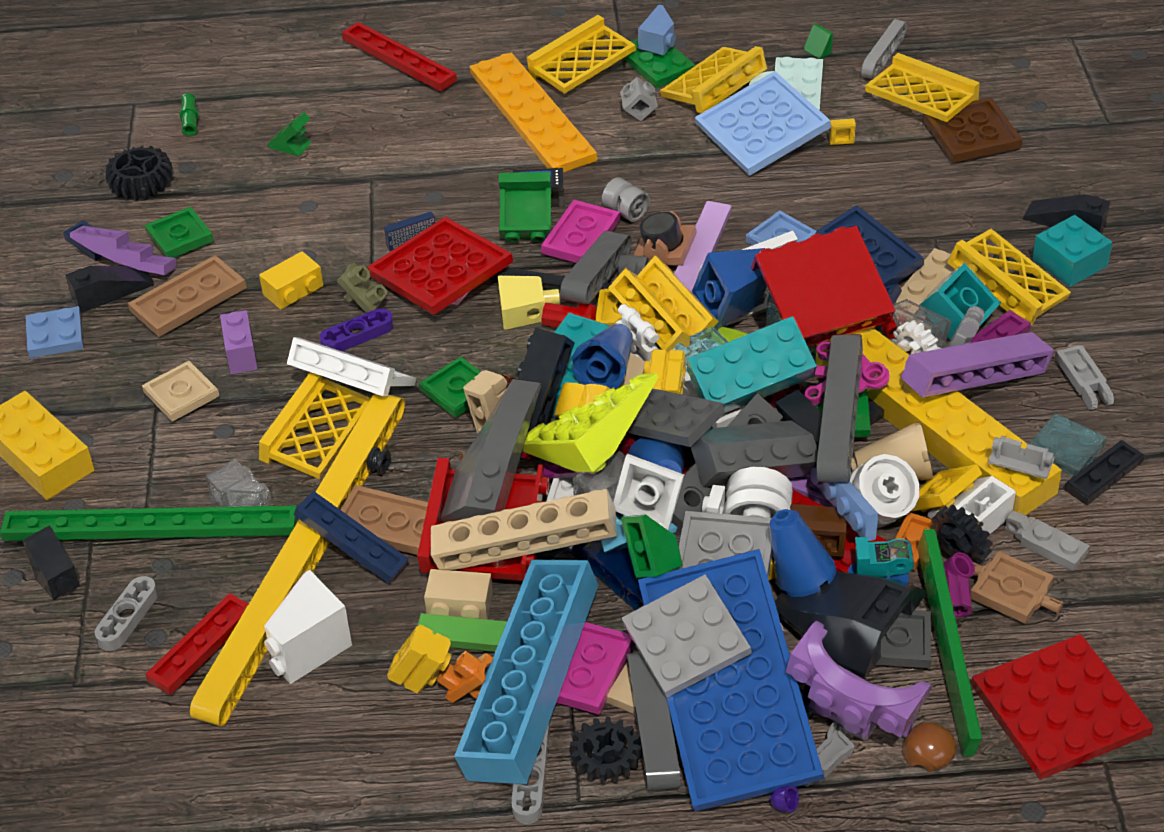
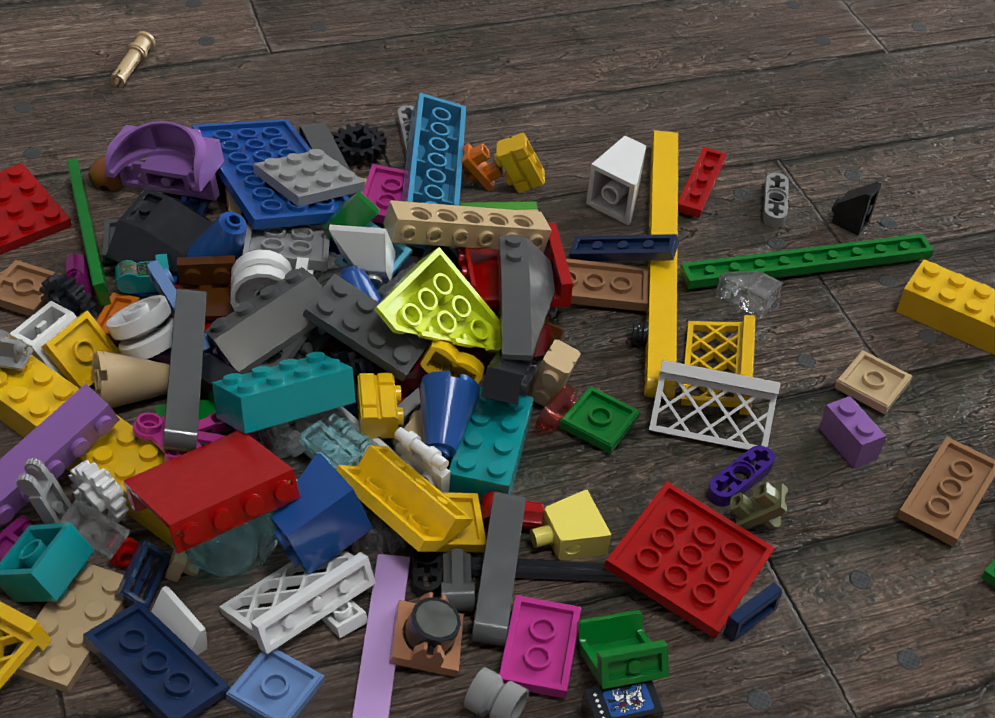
camera: 160 degrees right, 0 degrees up
(291, 280) = (848, 520): yellow brick -> none

